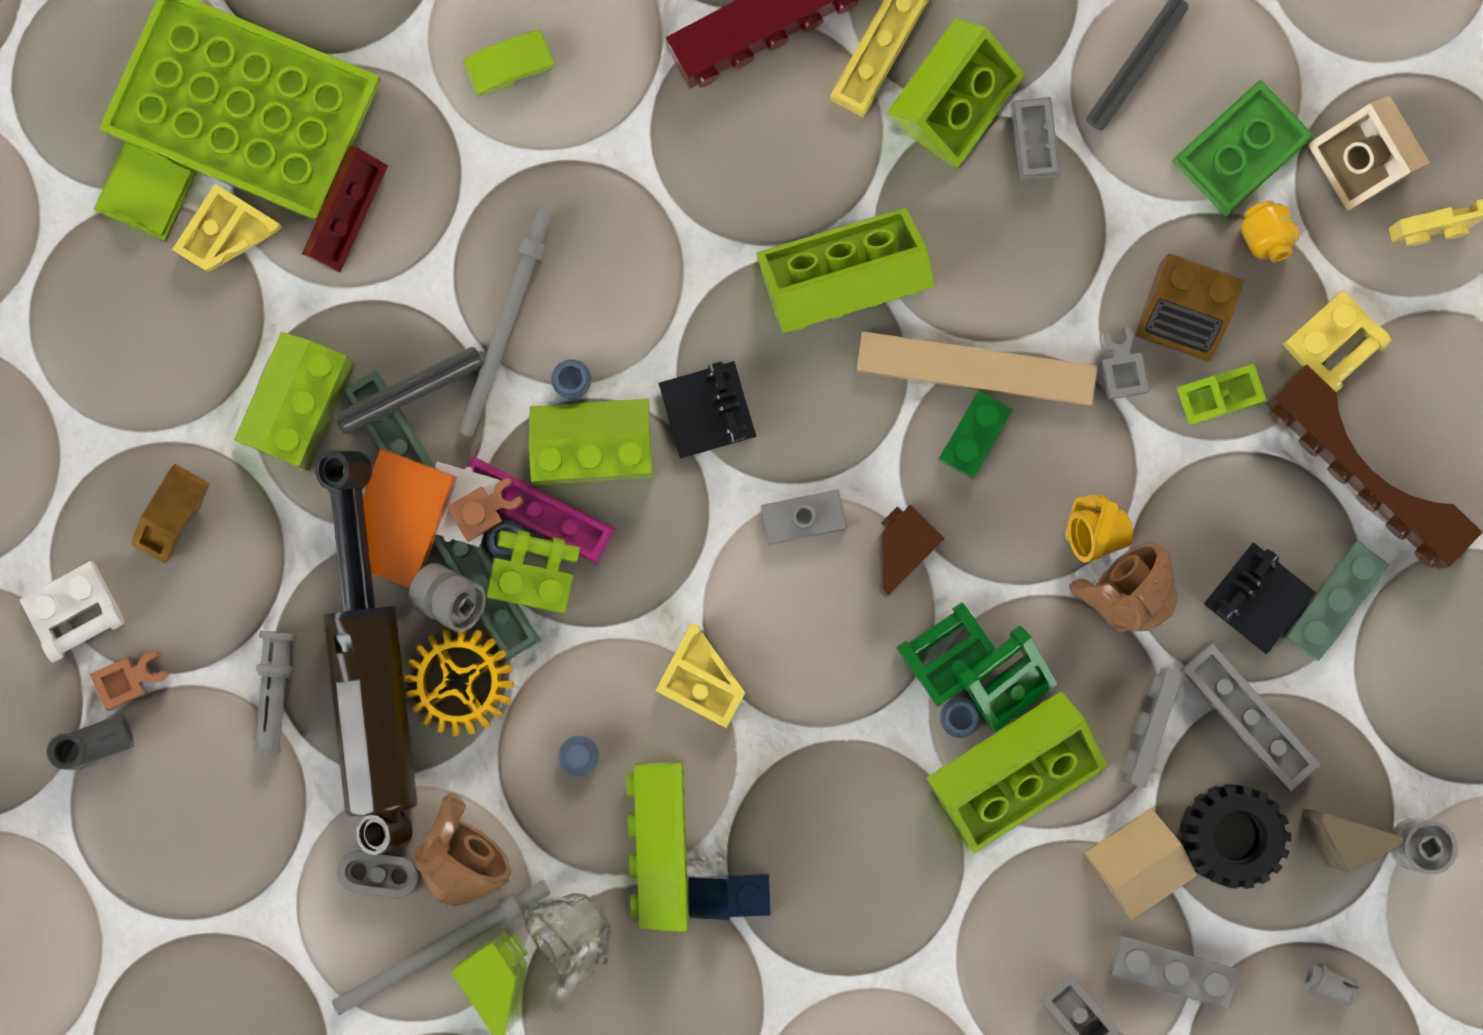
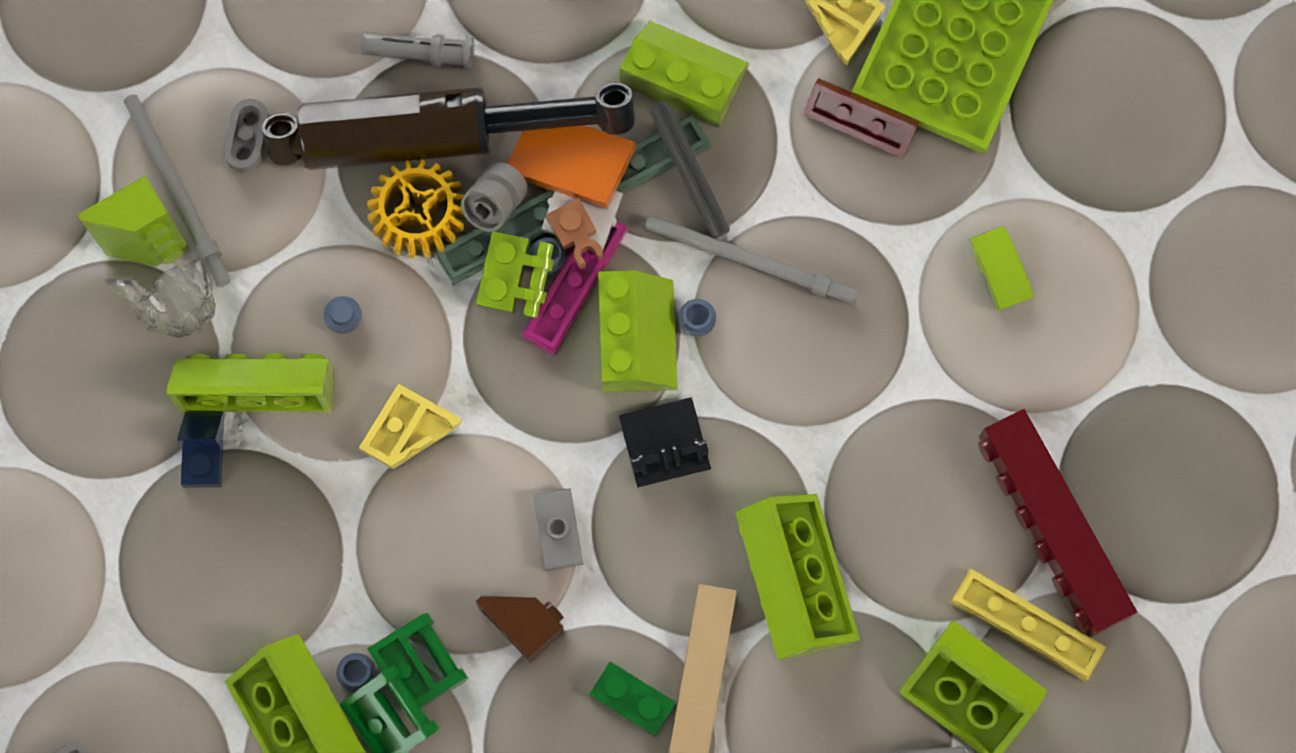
camera: 90 degrees right, 10 degrees down
(459, 859) = (255, 203): medium nougat head -> none

